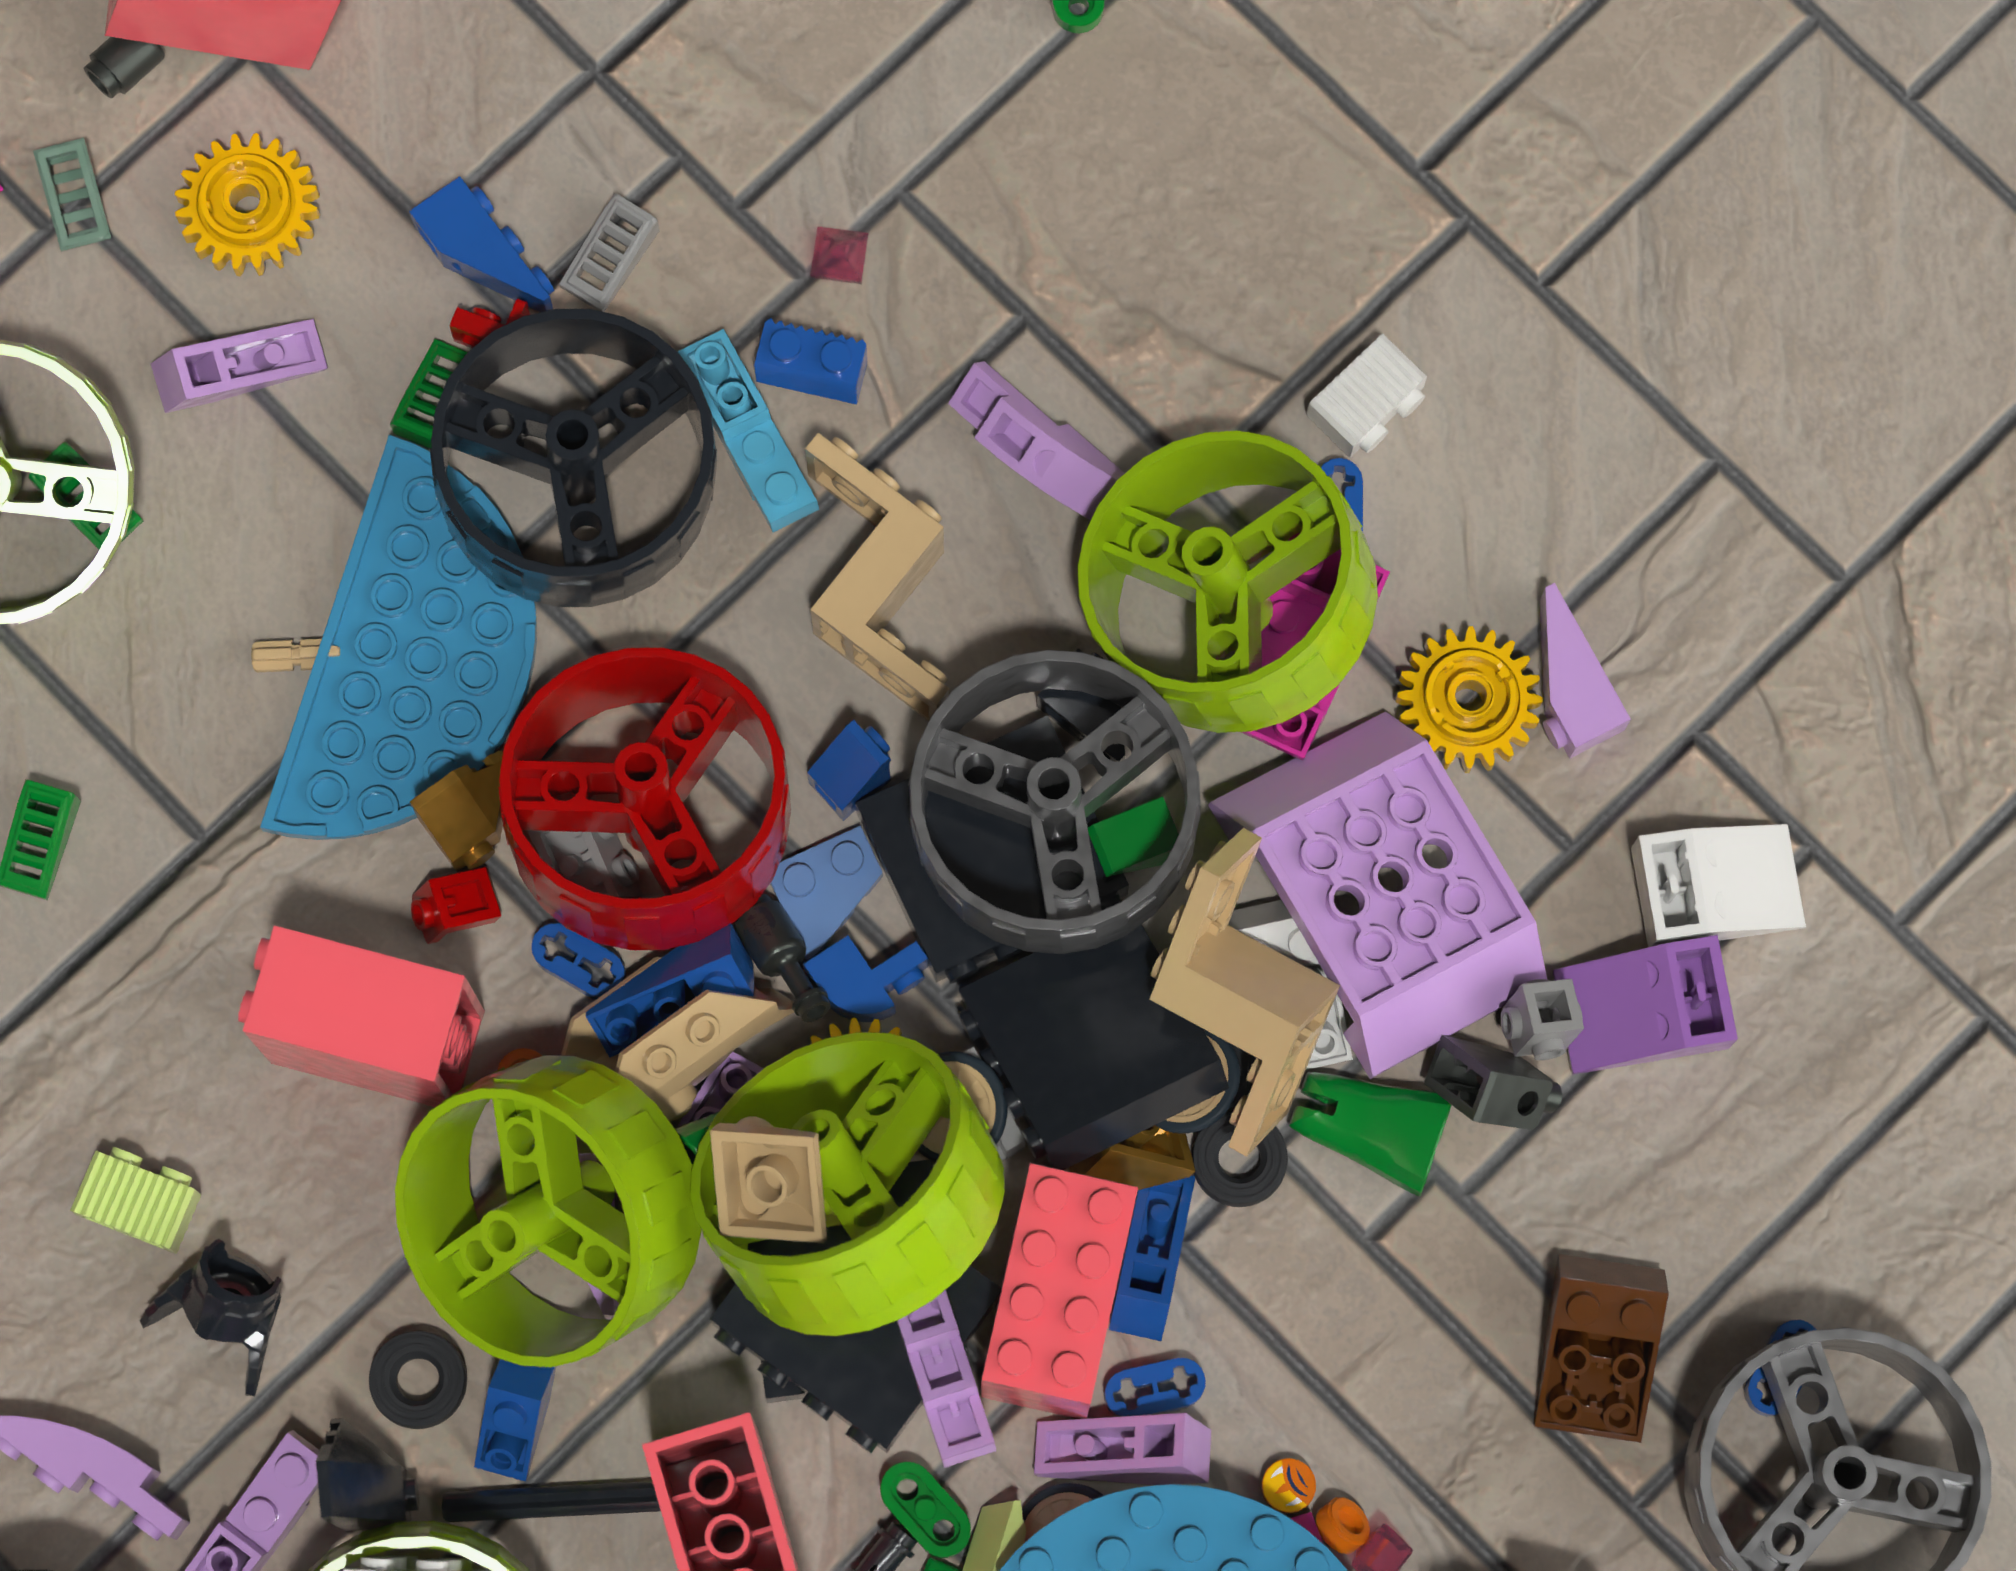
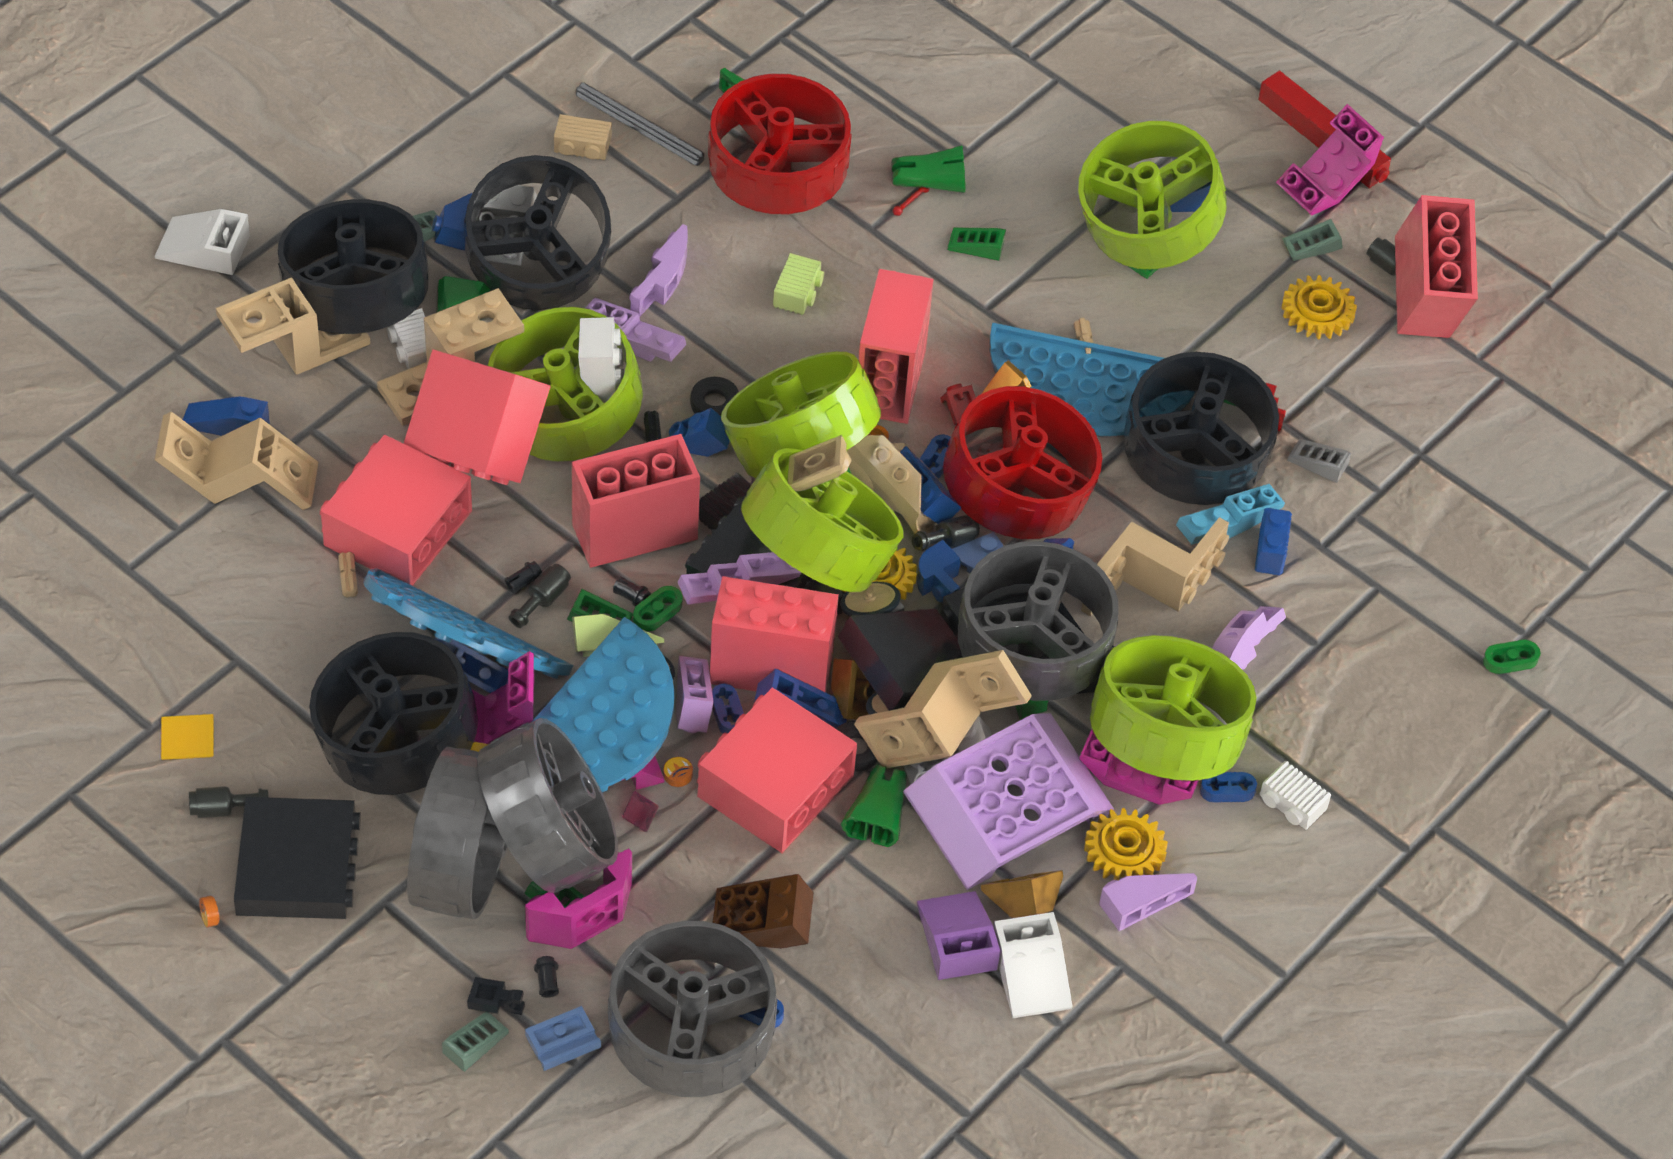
camera: 85 degrees right, 25 degrees down
(224, 1303) = (748, 316): black helmet -> none
(237, 365) = (1232, 305): lavender slope -> none
(361, 1483) = (662, 354): black wedge -> none
(470, 243) = (1317, 396): blue slope -> none
(687, 1363) = (721, 500): none -> black brick
(839, 255) = (1336, 559): clear pink slope -> none
(1316, 1305) = (776, 769): none -> coral brick
(1343, 1525) = (658, 791): orange tile -> none
(1511, 1089) = (904, 851): pearl dark grey torso -> none
(1542, 1018) = (945, 874): light grey brick -> none
(1567, 881) = (1025, 894): none -> pearl gold slope

